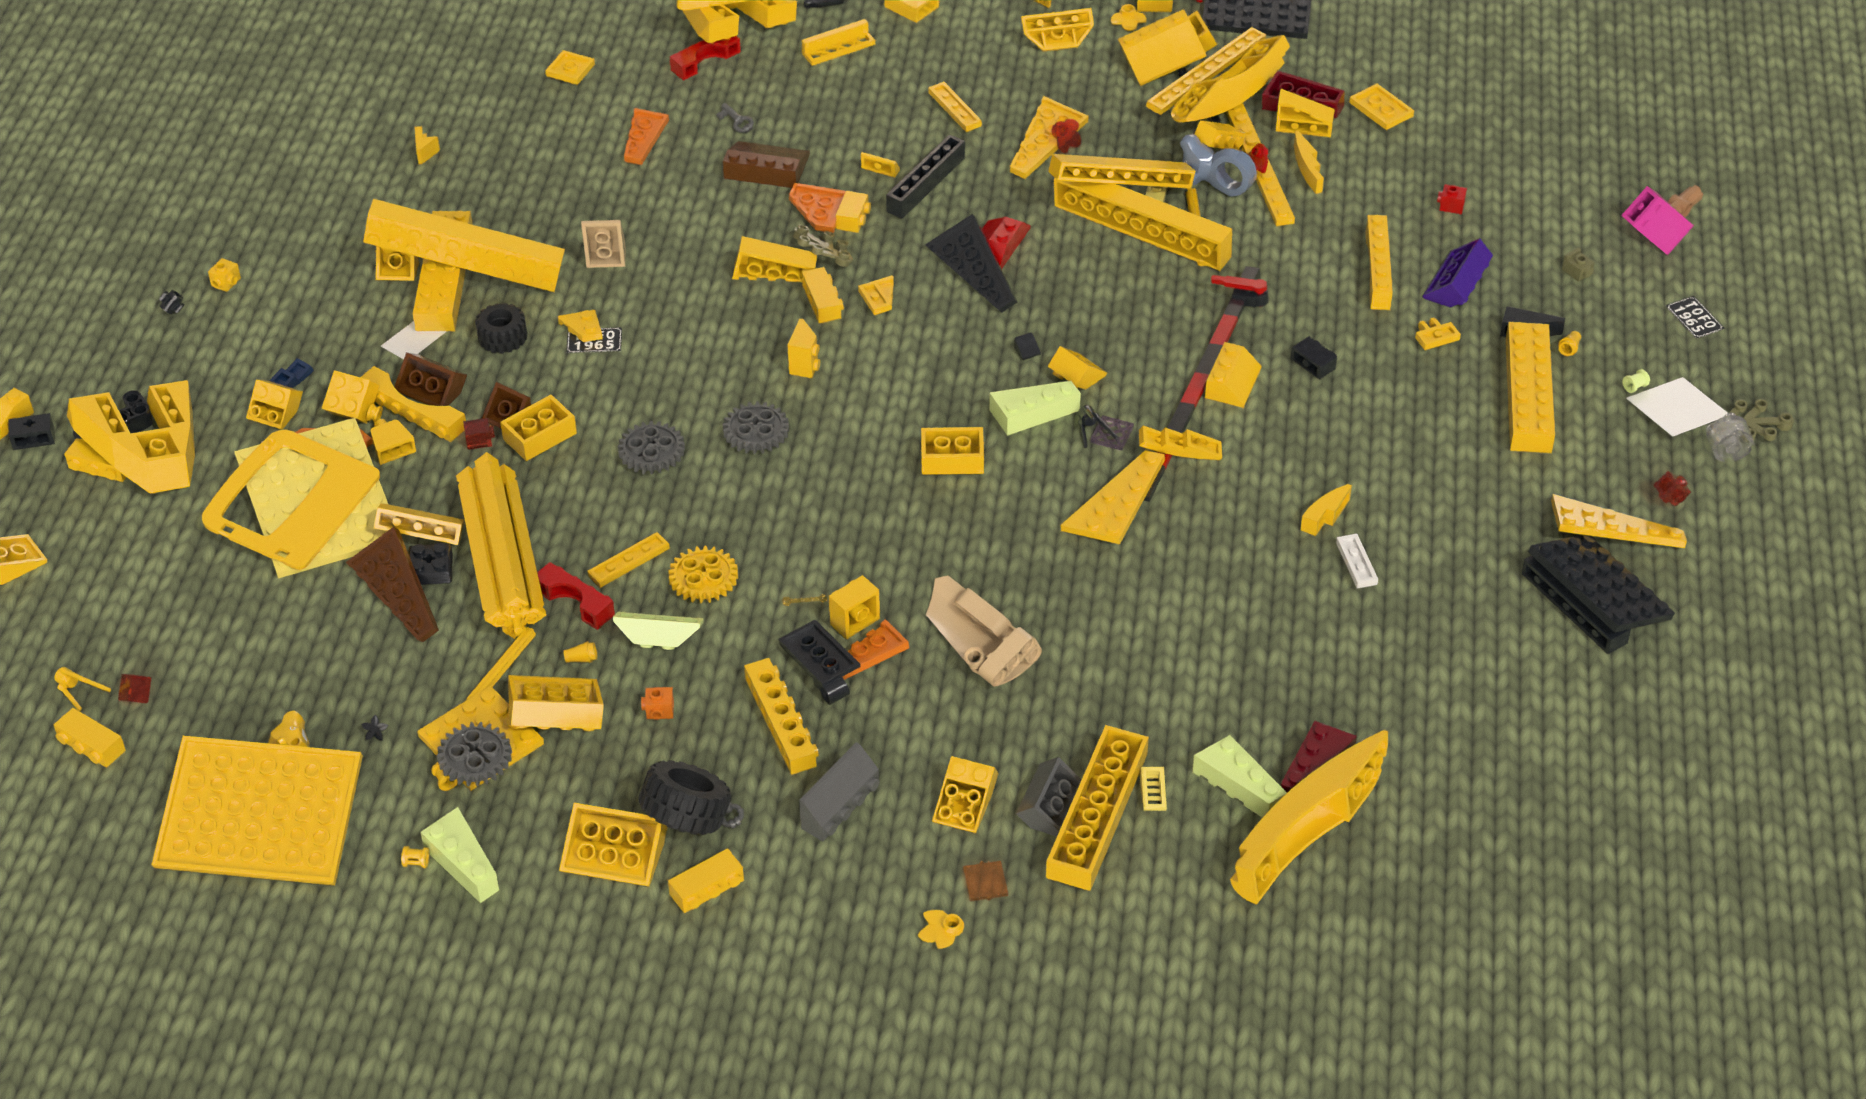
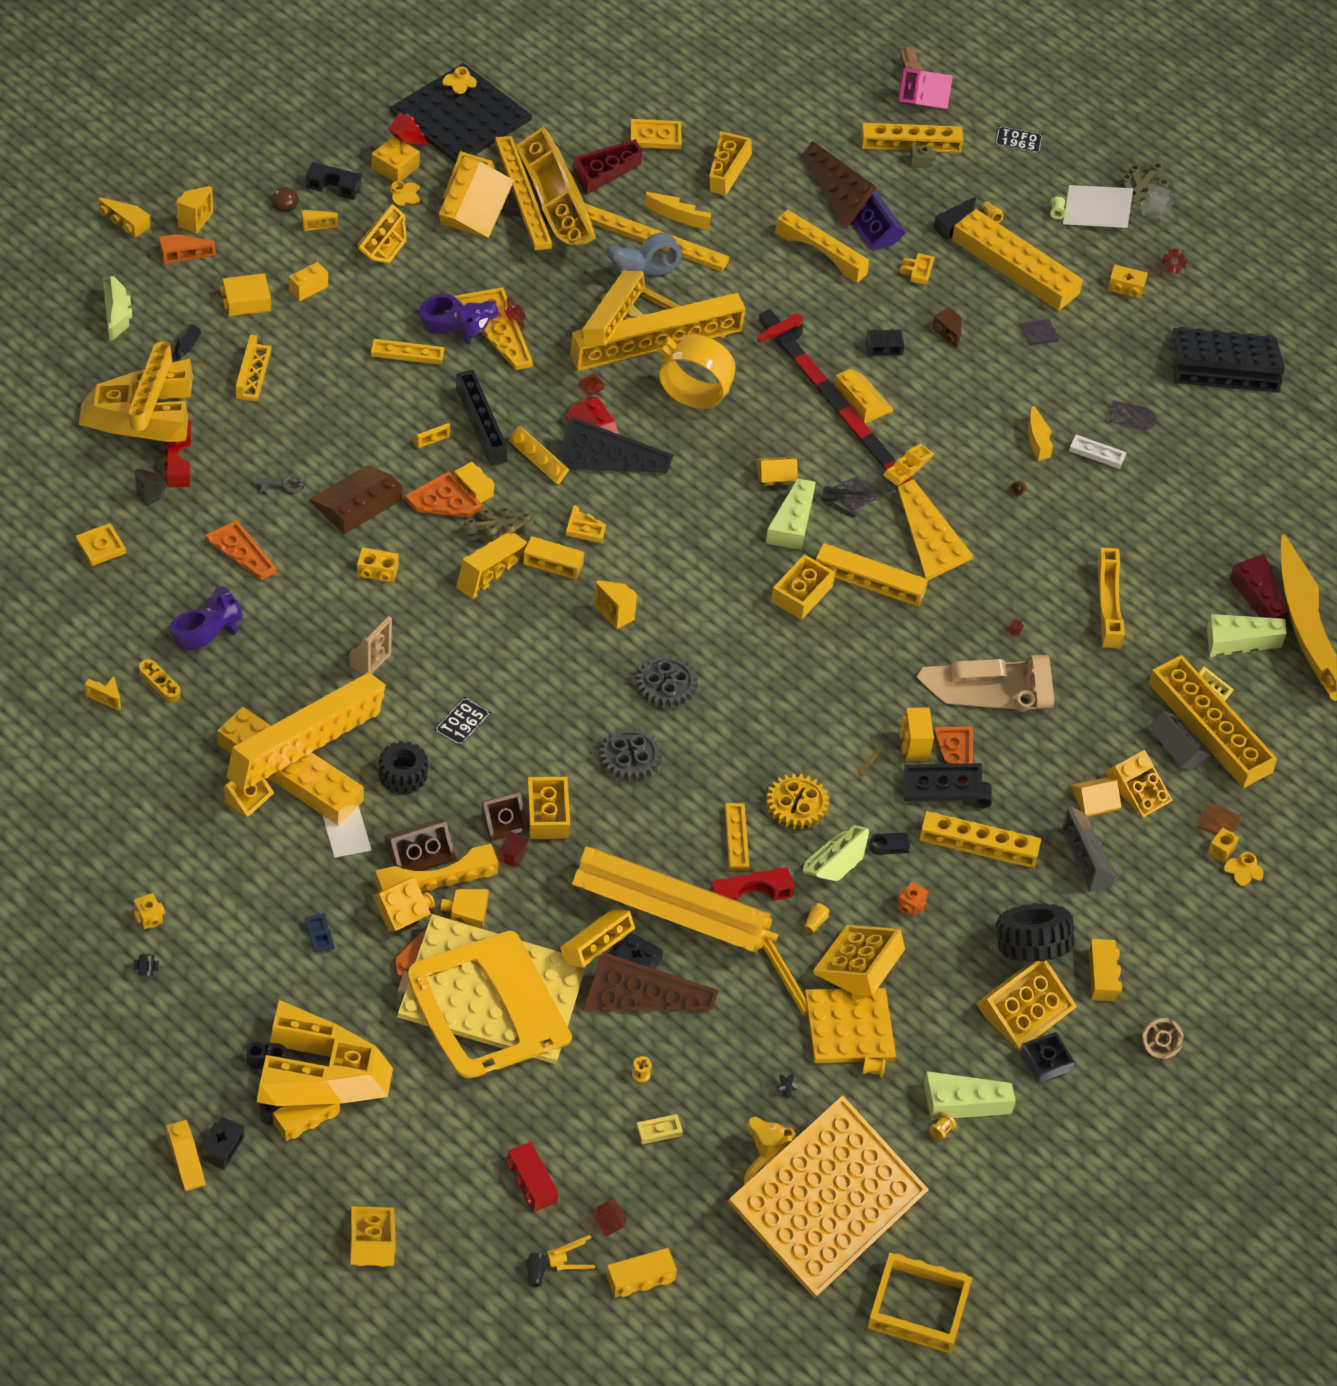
camera: 60 degrees left, 5 degrees up
(44, 672) = (536, 1268): none -> black cone
(139, 620) = (531, 1176): none -> red brick
(207, 973) = (911, 1331): none -> yellow window
(255, 672) = (659, 1129): none -> light yellow plate
(273, 403) = (349, 961): yellow slope -> none
(310, 631) = (639, 1068): none -> yellow bush
(458, 179) = (158, 672): none -> yellow beam
(474, 754) = (879, 1033): dark grey gear -> none
(538, 150) = (200, 627): none -> dark purple animal
(560, 889) = (1047, 1057): none -> black brick
(583, 325) = (443, 716): yellow wing -> none
(650, 54) = (149, 486): none -> clear smoke slope
(653, 960) = (1162, 1038): none -> tan cylinder
(704, 208) = (378, 565): none -> yellow brick
(721, 663) = (895, 843): none -> black piece
(919, 773) = (1097, 796): none -> yellow slope
(926, 229) = (538, 455): none -> yellow plate
(952, 894) = (1223, 845): none -> yellow brick
(963, 19) = (308, 281): none -> yellow brick
(1019, 106) = (466, 318): none -> dark purple animal
(1021, 488) = (873, 575): none -> yellow brick
(1026, 346) = (723, 481): black slope -> none
(1043, 218) = (591, 384): none -> clear red plate
(1068, 613) = (1016, 627): none -> clear red plate
(1111, 252) = (705, 353): none -> yellow cylinder
(1207, 640) = (1108, 580): none -> yellow arch
(1219, 135) = (612, 233): yellow brick -> none
(1244, 530) = (1015, 487): none -> reddish brown hinge
(1259, 157) = (646, 233): red plate -> none
(1303, 115) = (628, 179): yellow wedge -> none
(1388, 386) = (948, 326): none -> reddish brown slope
(1400, 159) = (729, 160): none -> yellow wedge
(1414, 552) = (1135, 408): none -> window
(1452, 199) = (793, 167): red brick -> none
(1464, 450) = (1039, 332): none -> piece
(1468, 232) = (842, 185): none -> reddish brown wing
(1592, 520) = (1174, 313): yellow wing -> none
(1604, 472) = (1127, 281): none -> yellow brick
(1607, 257) = (901, 137): none -> yellow brick

